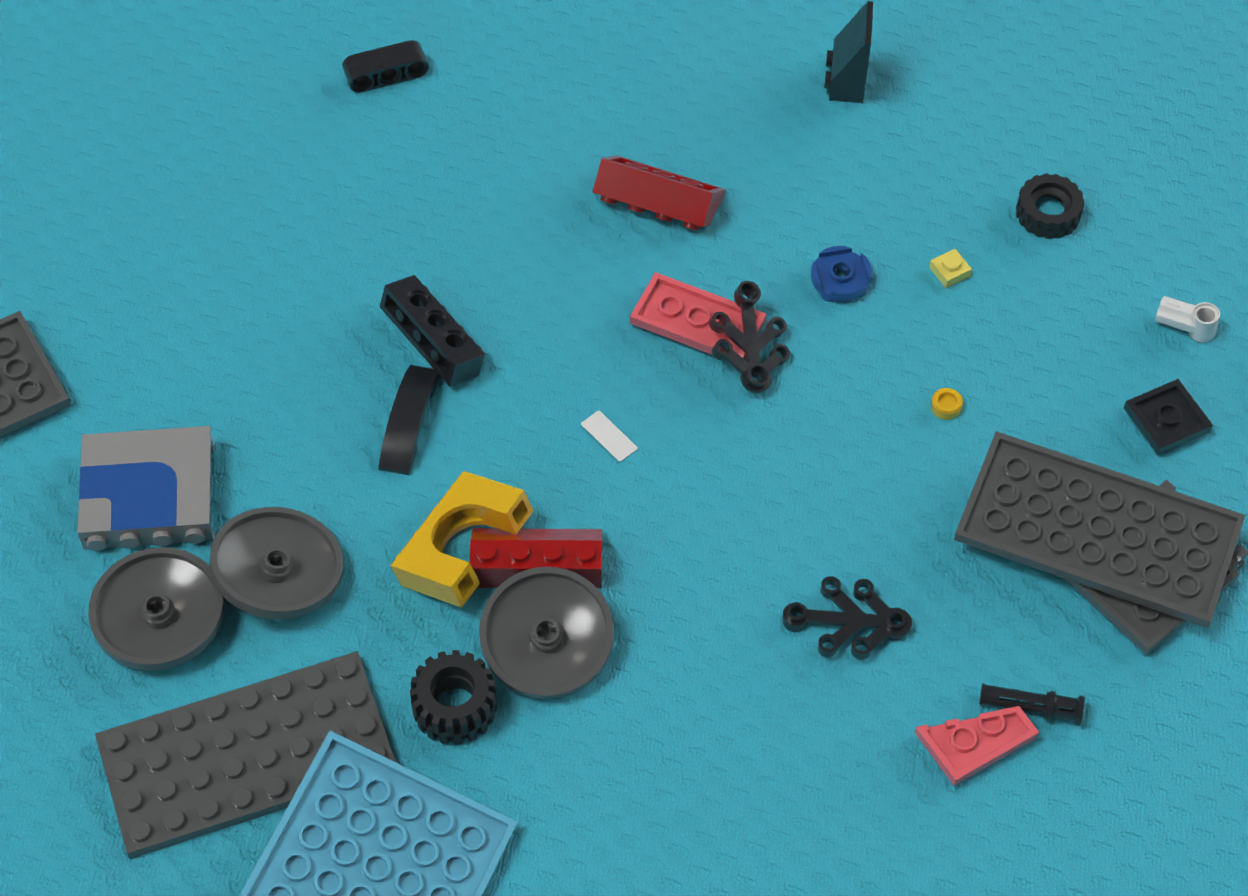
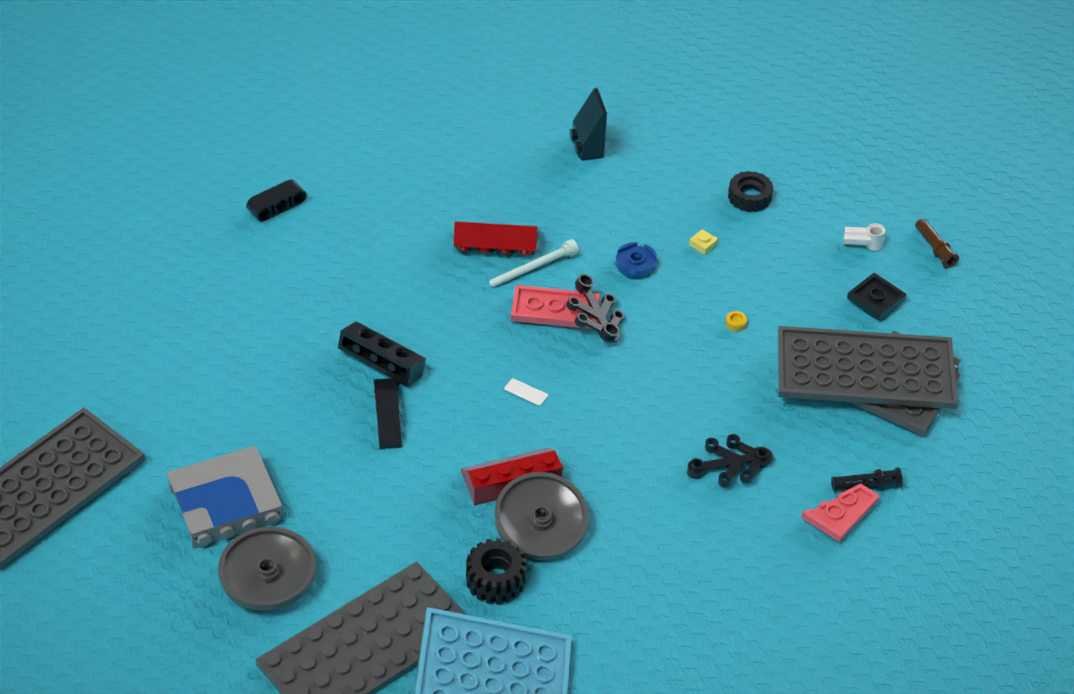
camera: 20 degrees left, 10 degrees down
(276, 563) = (338, 519): dark grey dish -> none
(467, 503) = (452, 452): yellow arch -> none
(751, 234) = (568, 248): none -> light aqua piece

